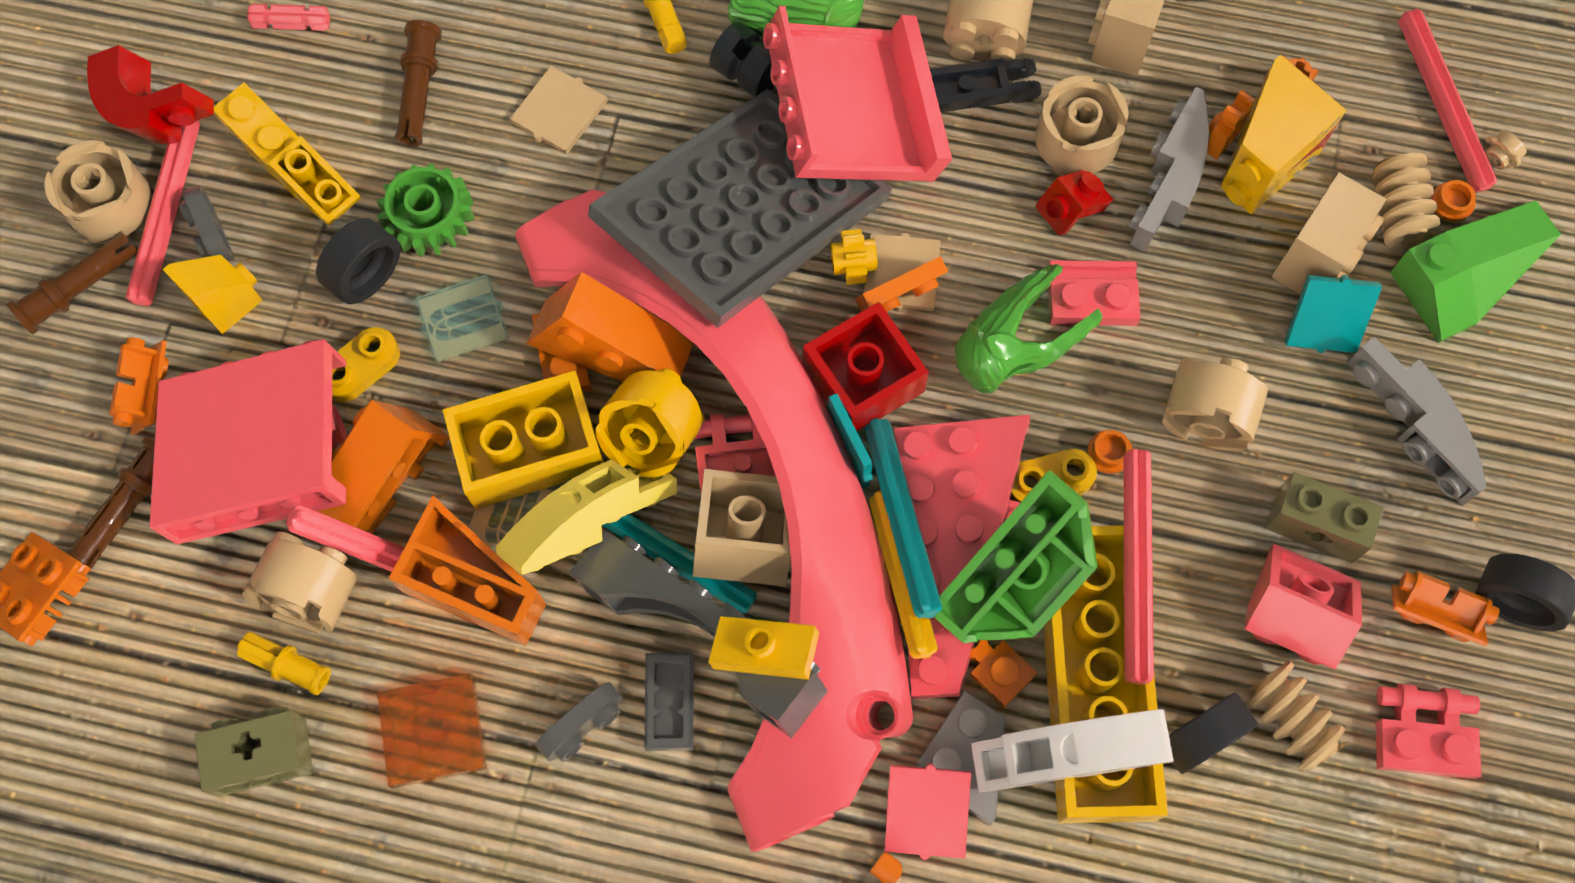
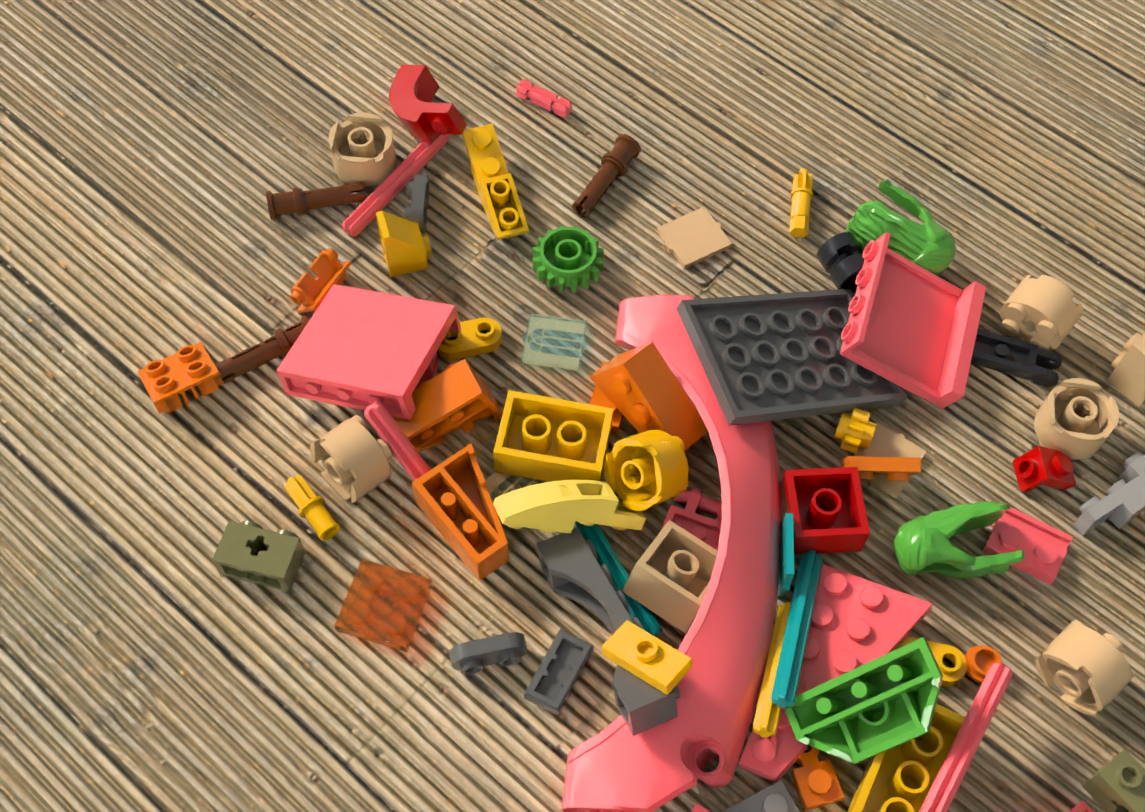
camera: 25 degrees right, 10 degrees down
(358, 261) = (498, 258): black tyre -> none

